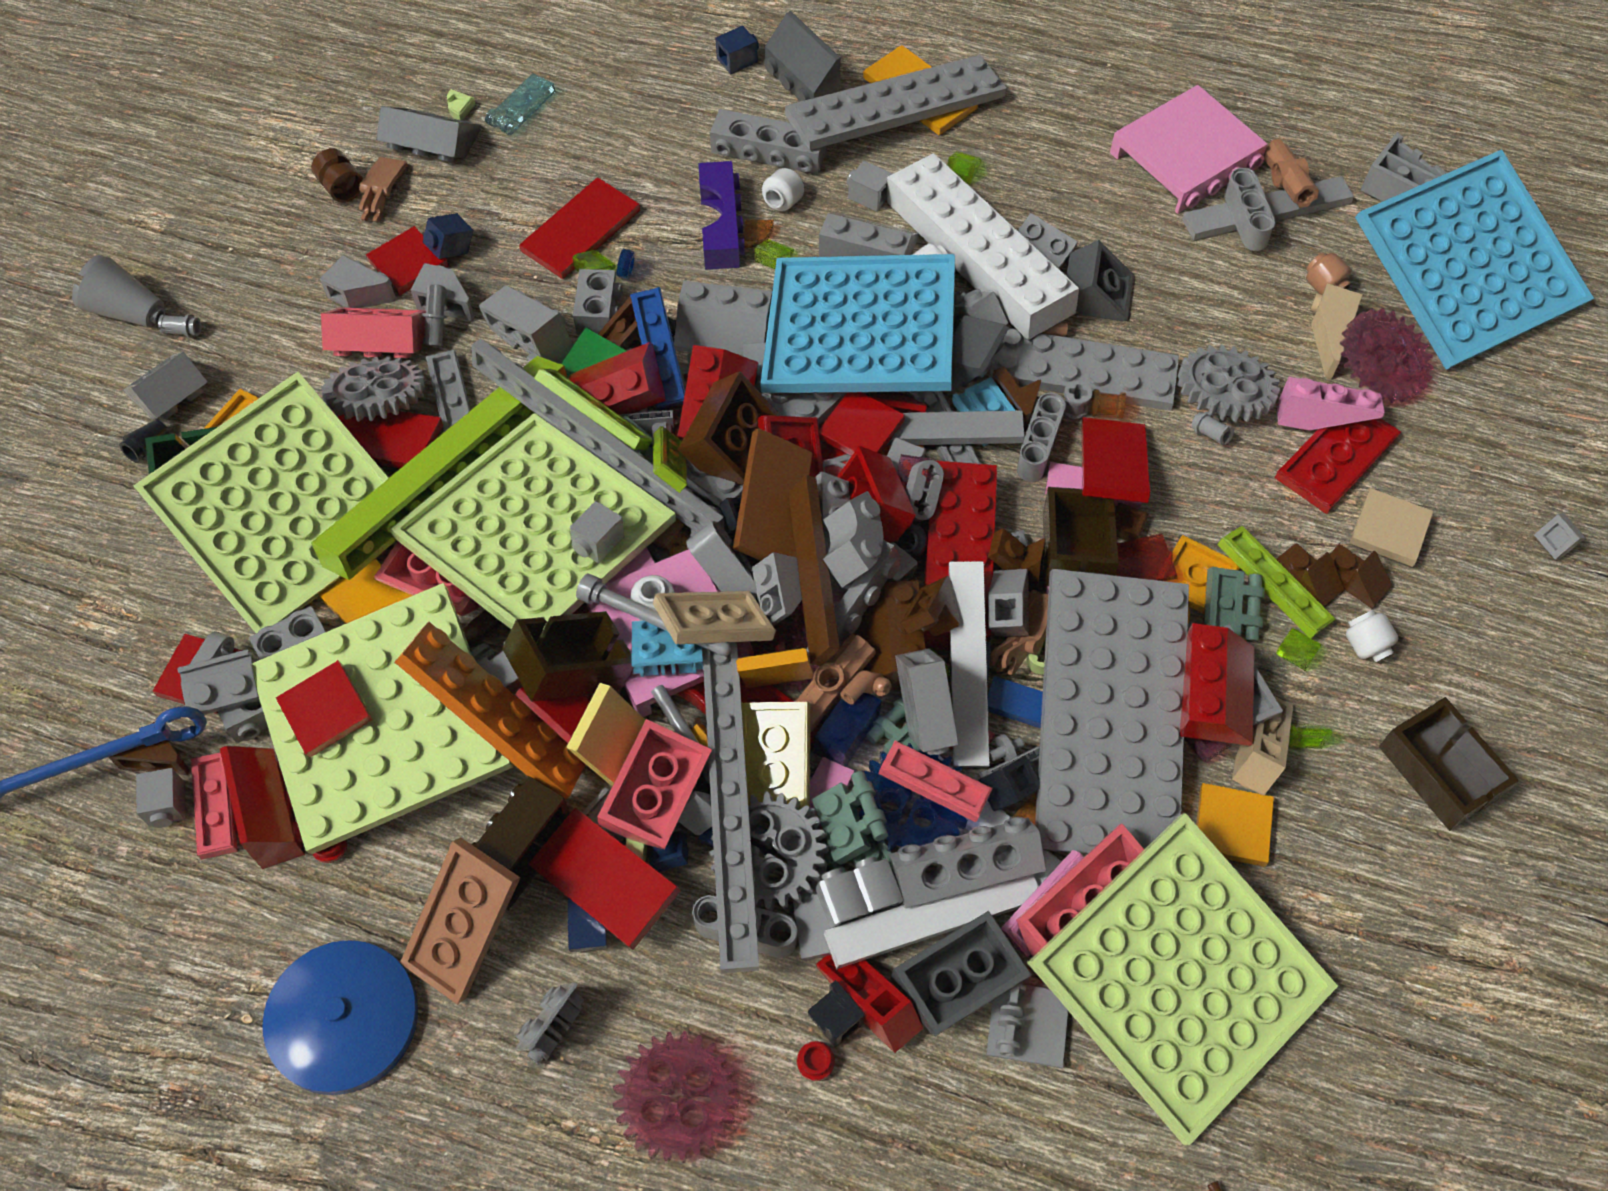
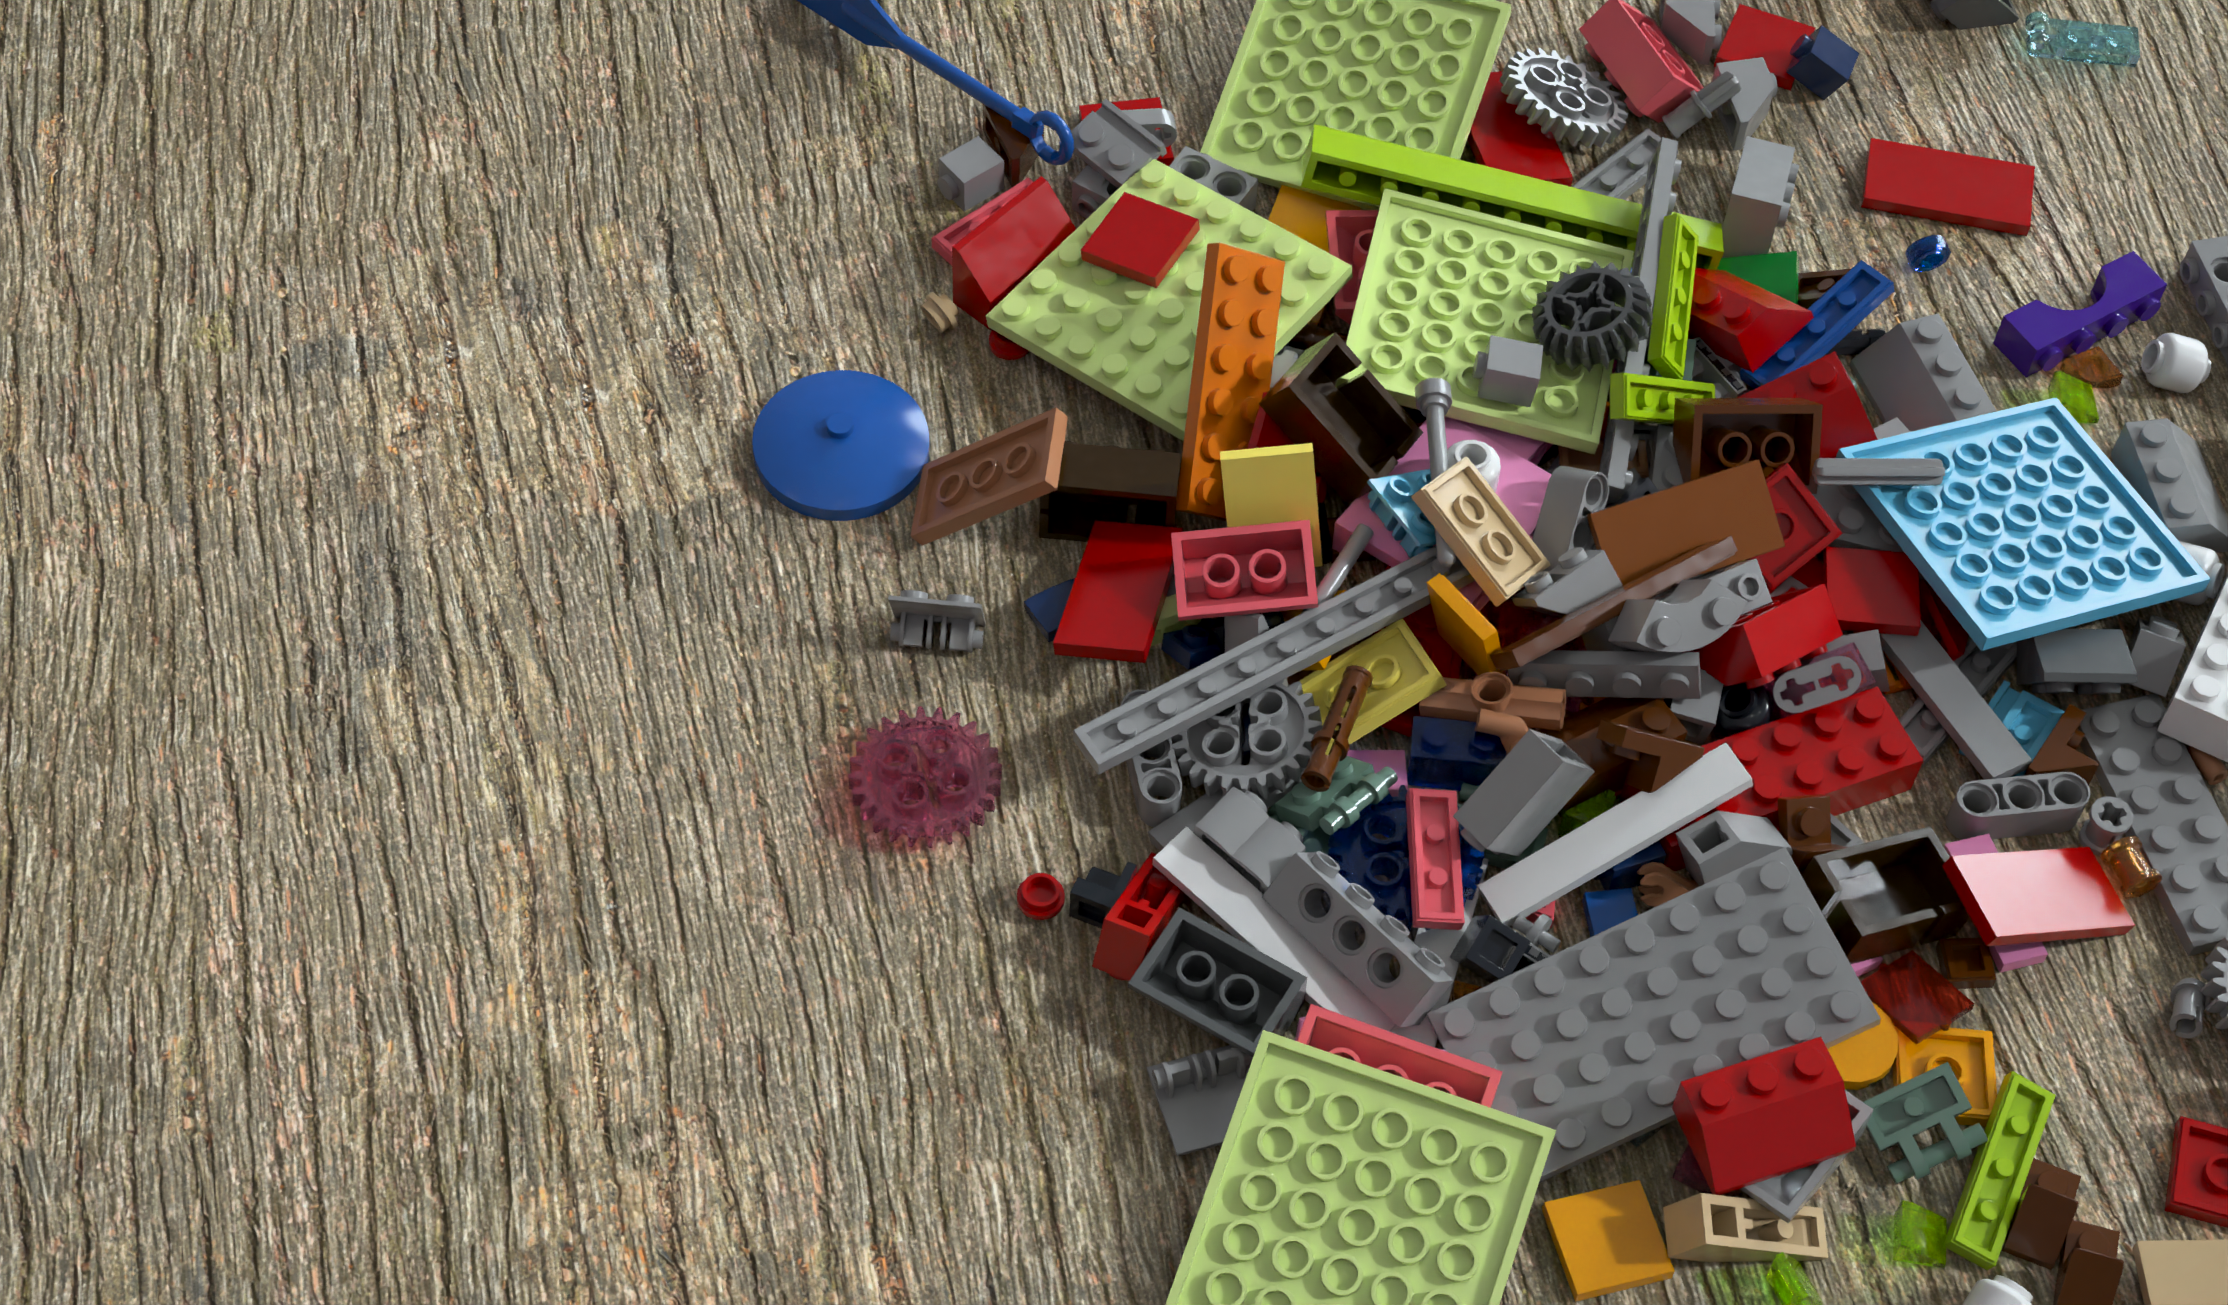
camera: 60 degrees right, 5 degrees down
(271, 882) = (940, 312): none -> tan plate
(563, 472) = (1597, 326): none -> dark grey gear
(592, 260) = (1902, 223): clear neon green slope -> none
(595, 299) = (1847, 241): light grey brick -> none
(795, 372) = (1878, 471): none -> light grey axle
(819, 799) = (1321, 766): none -> reddish brown pin

